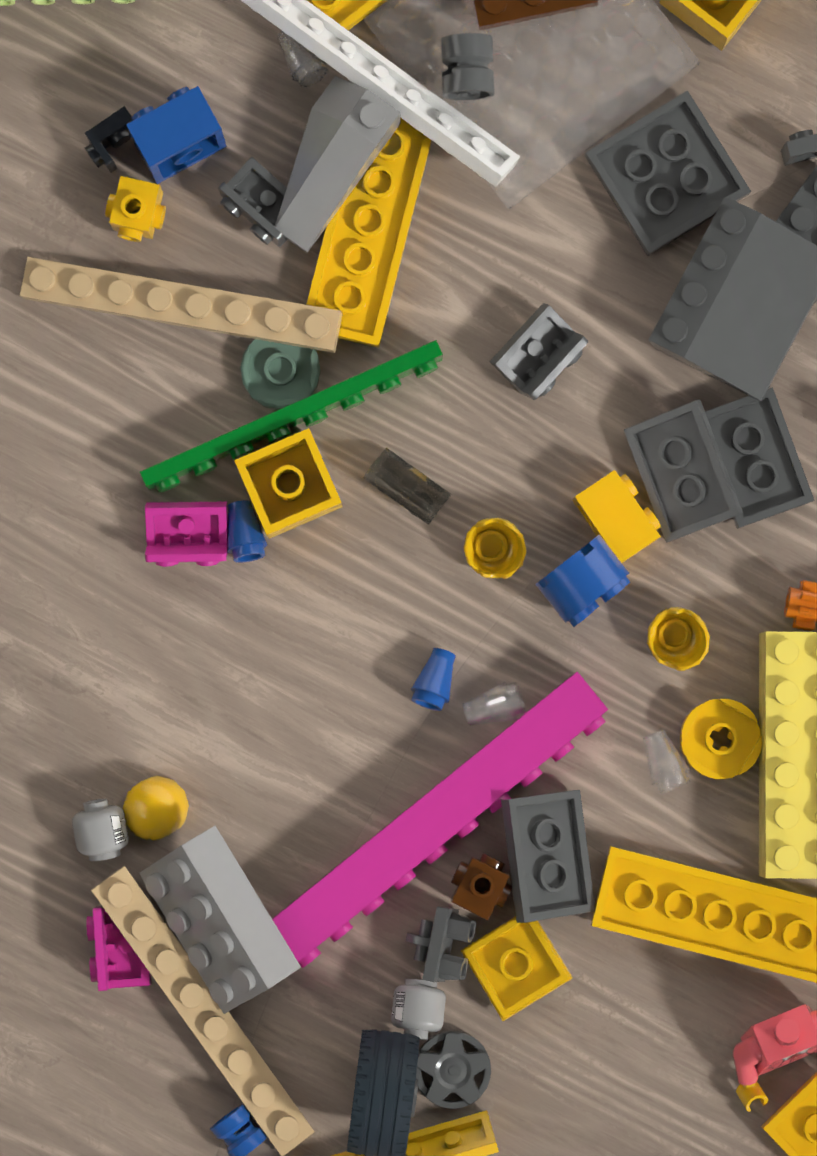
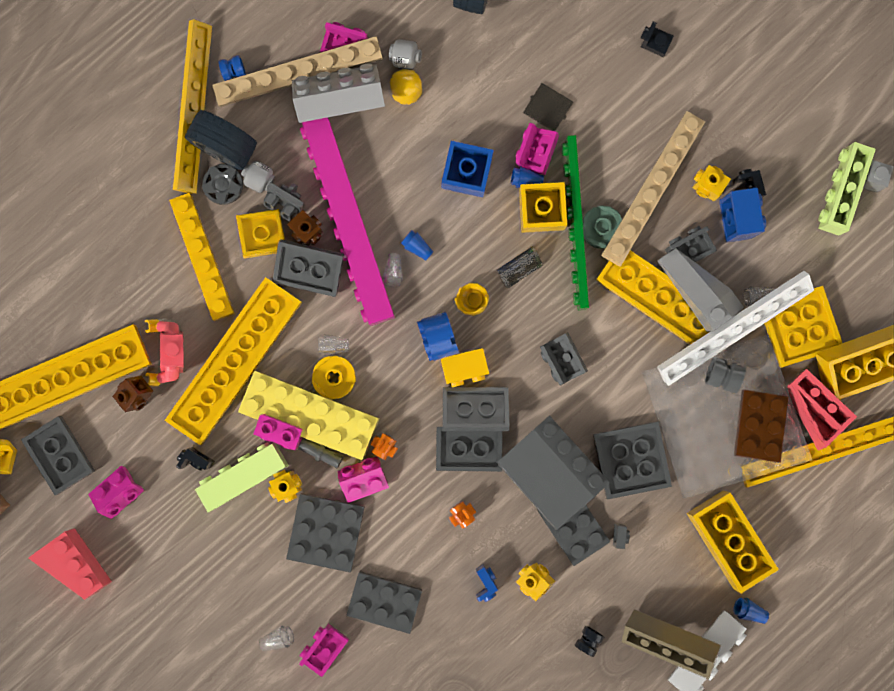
camera: 115 degrees right, 0 degrees up
(100, 542) = (548, 107): none -> clear smoke piece
(269, 640) = (467, 169): none -> blue brick
(595, 1056) = (201, 257): none -> yellow plate
(678, 638) = (391, 374): yellow hair -> none

